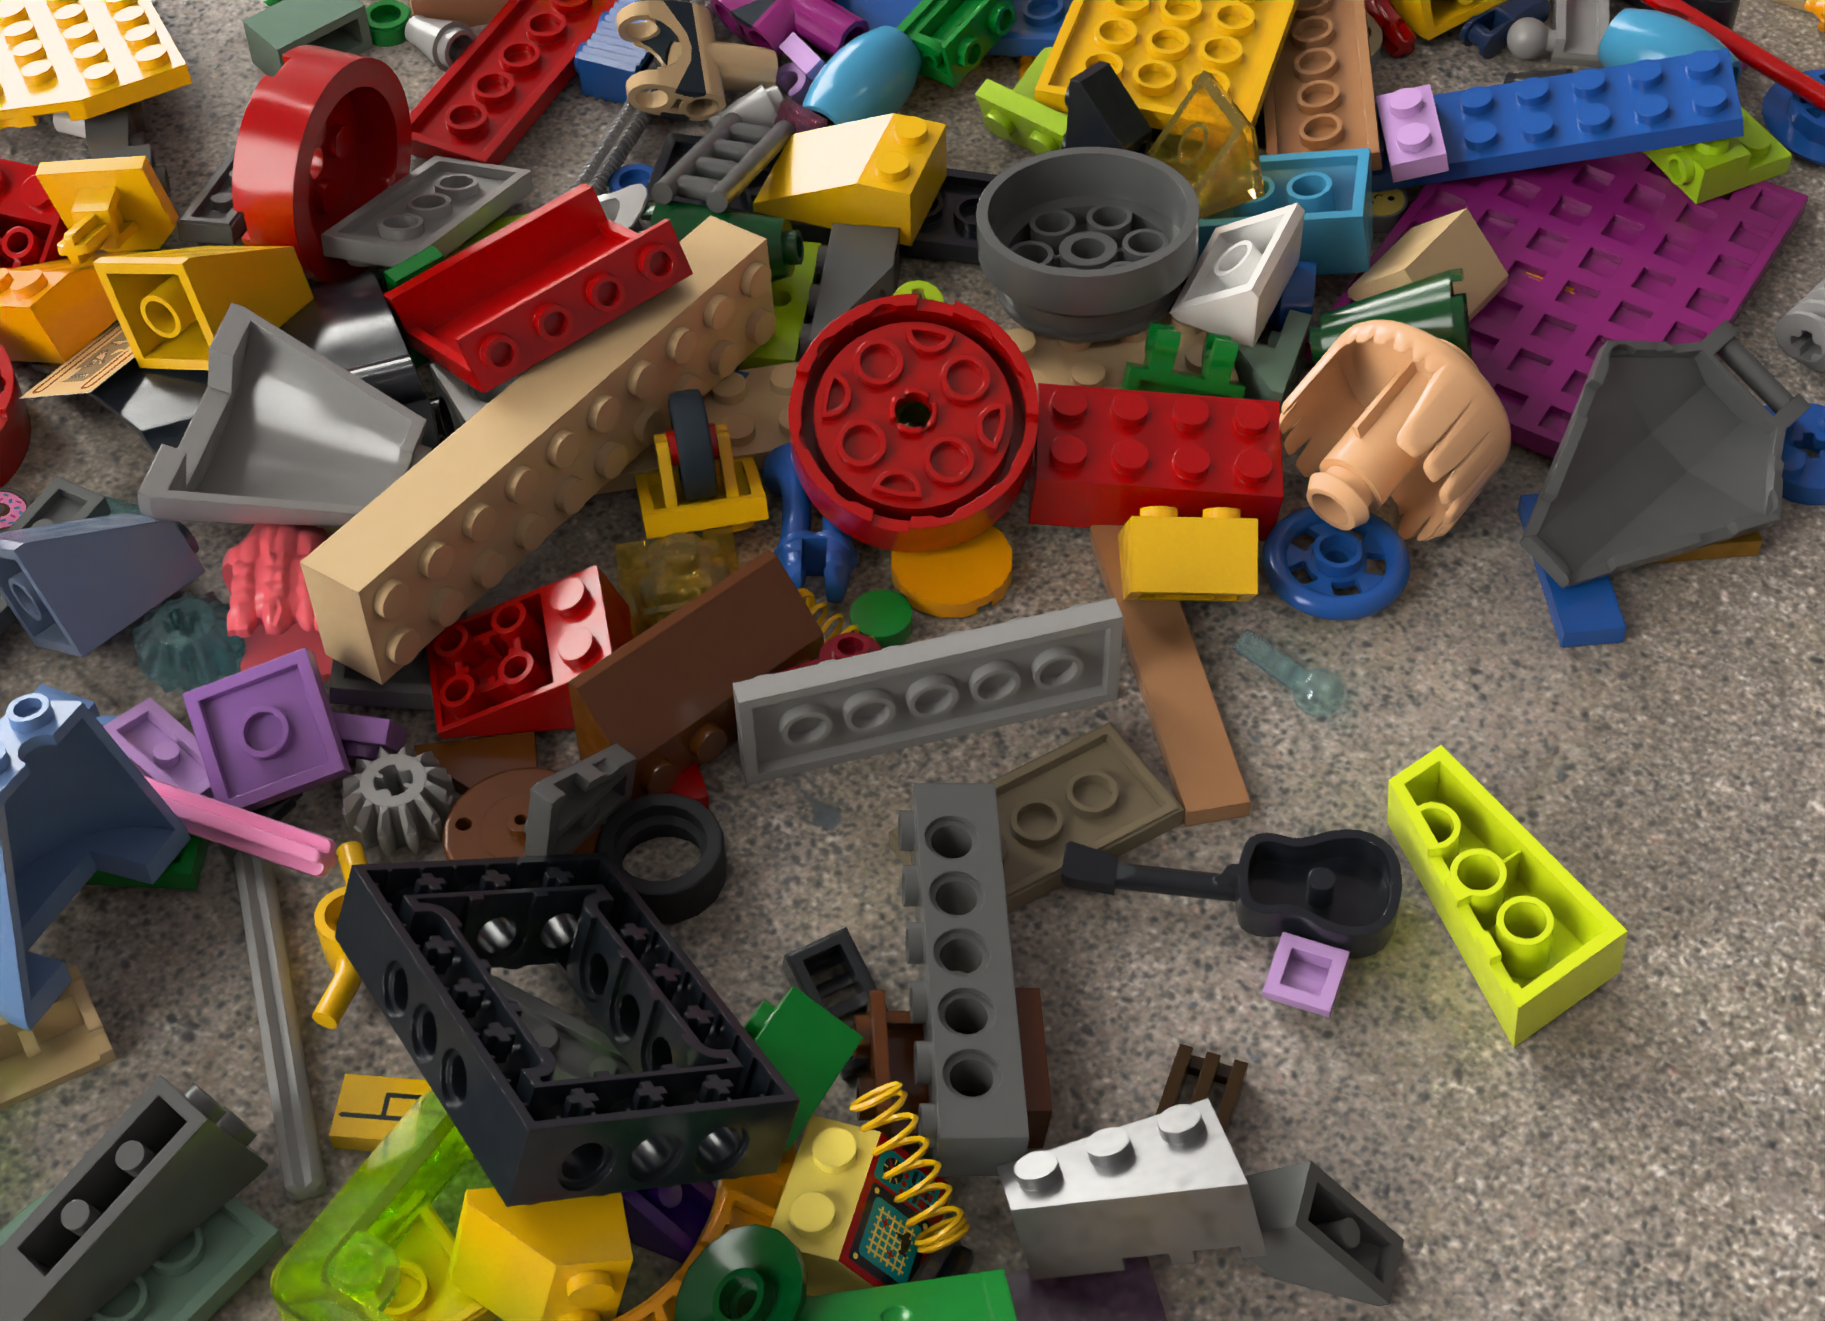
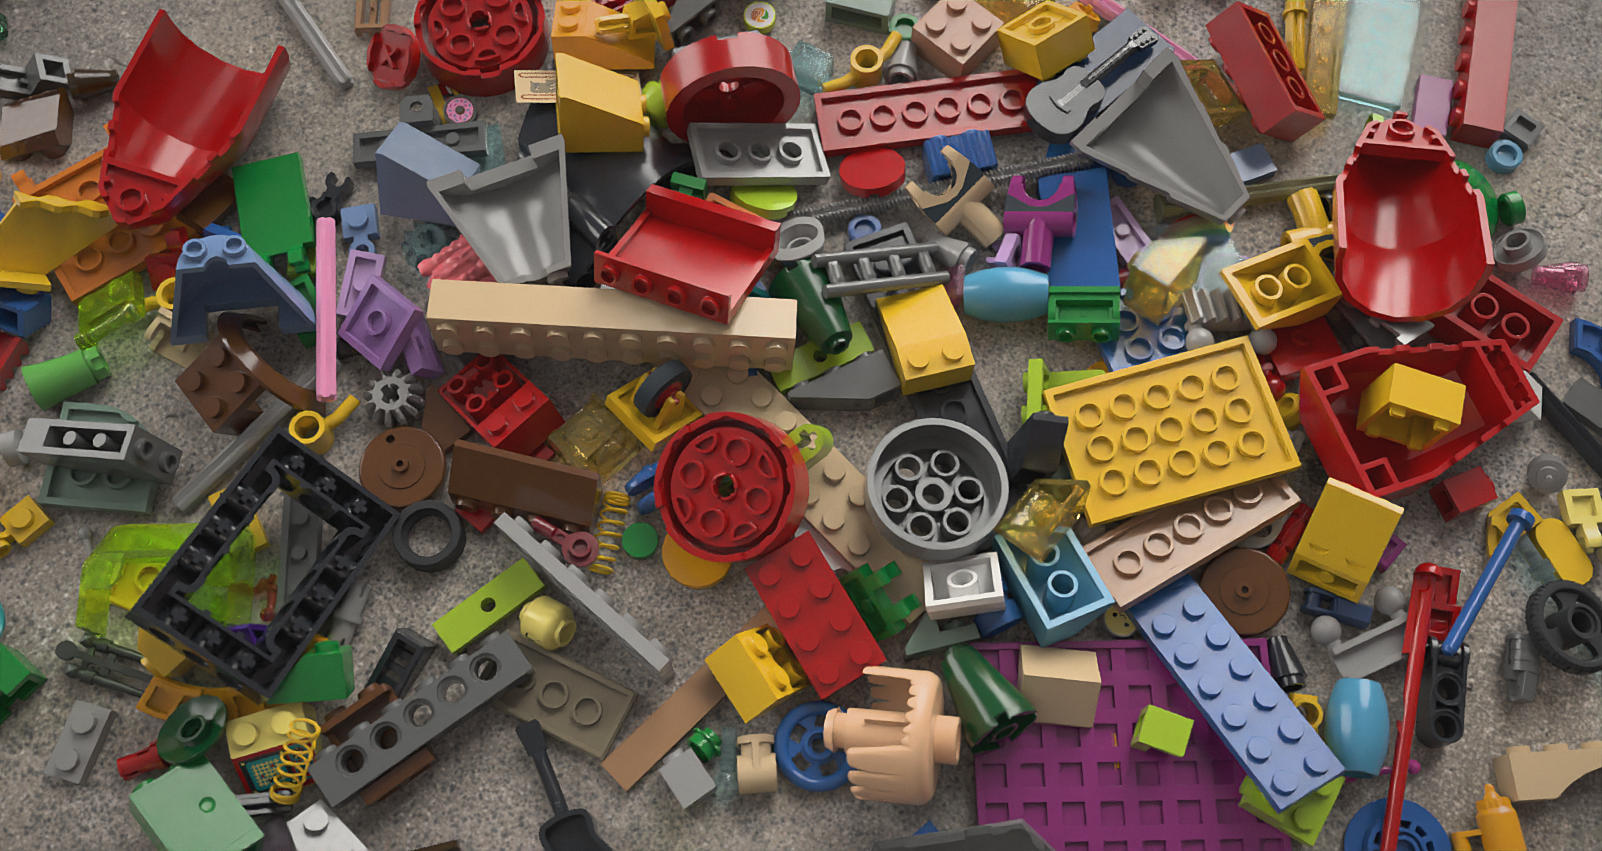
camera: 55 degrees right, 20 degrees up
(172, 966) = (232, 376): none -> reddish brown piece
(211, 142) = (759, 16): none -> tile
(409, 59) = (868, 57): none -> yellow piece
(565, 131) = (872, 172): none -> red tile
(578, 801) = (398, 485): dark grey wing -> none
(838, 836) = (470, 621): none -> lime tile
(920, 757) = (547, 623): none -> light yellow head
(1245, 681) = (705, 744): none -> green plate
(1285, 717) = (687, 778): none -> light grey brick
(1319, 633) = (756, 764): none -> tan piece
(1412, 133) = (1161, 614): lavender plate -> none
(1430, 55) = (1247, 590): none -> reddish brown wheel
(1553, 205) = (1161, 731): none -> lime panel

